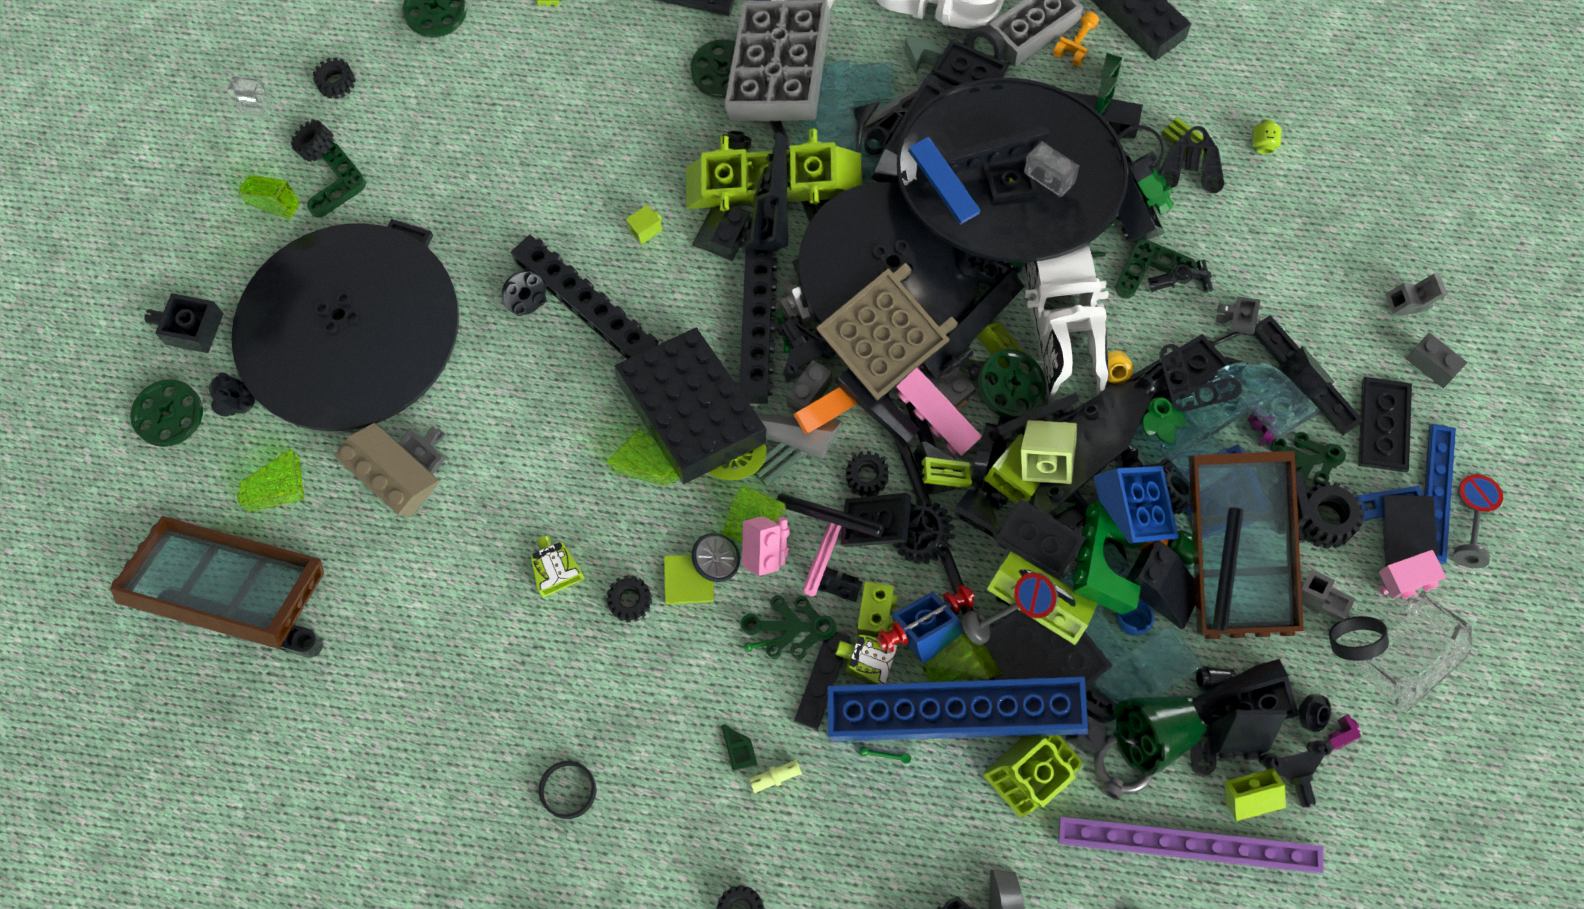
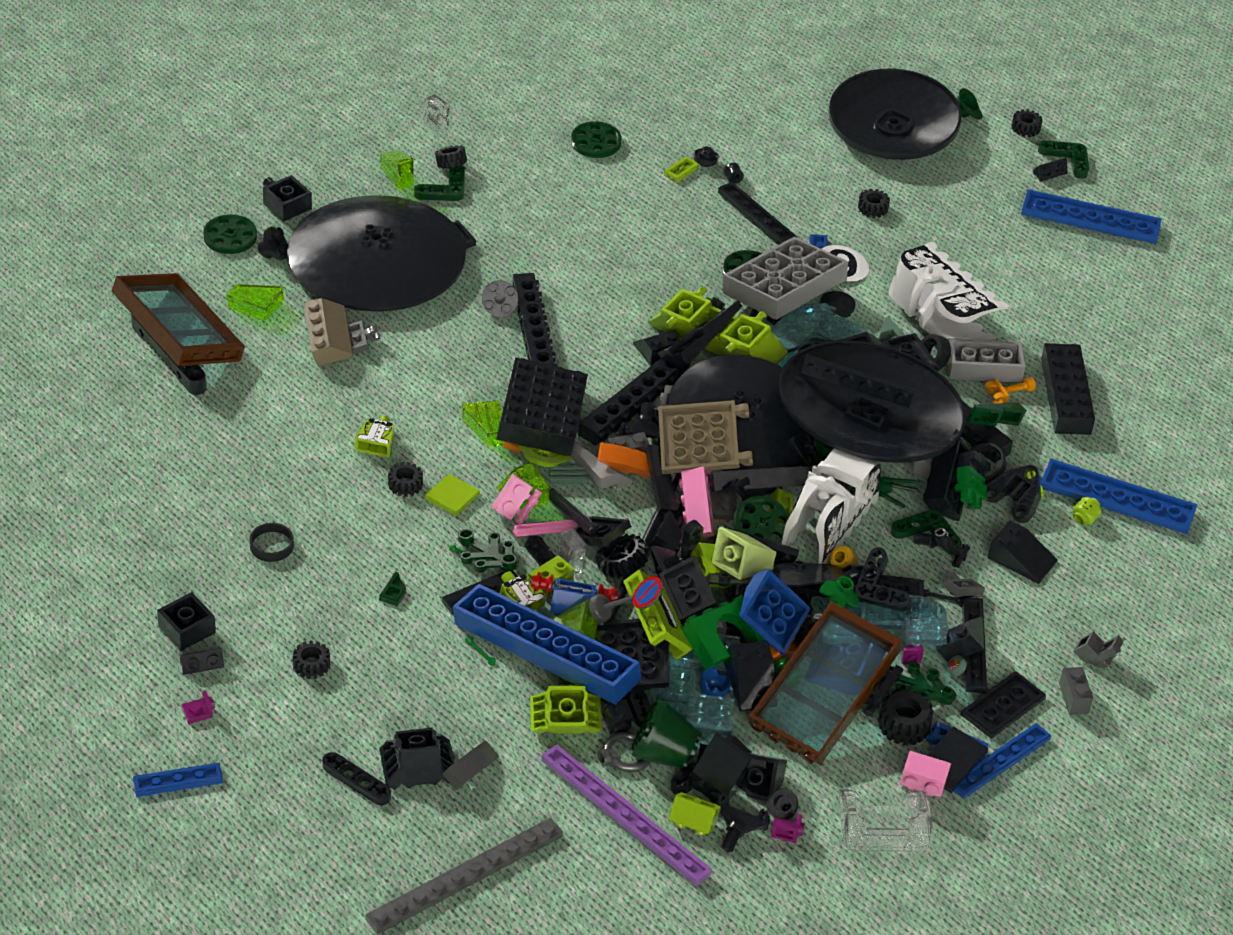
camera: 30 degrees right, 25 degrees down
(331, 68) = (497, 137): black tyre -> none
(644, 224) = (612, 312): lime brick -> none
(715, 557) = (479, 492): flat silver wheel -> none
(775, 776) = (401, 614): yellowish green pin -> none
(842, 47) = (841, 301): none -> black tile
(867, 460) = (623, 505): black tyre -> none
(875, 566) = (573, 549): none -> clear brick
(944, 180) = (813, 371): blue tile -> none
(946, 476) = (670, 536): lime tile -> none
(1051, 169) = (895, 412): clear brick -> none
(1227, 569) = (796, 683): black axle -> none
(1253, 231) = (1021, 552): none -> black slope
(1275, 96) = (1119, 496): none -> blue plate
(1320, 417) = (956, 665): none -> sand green tile
(1320, 596) = (852, 751): flat silver brick -> none
(1362, 652) = (852, 783): black tyre -> none
(1482, 496) = (1025, 777): piece -> none

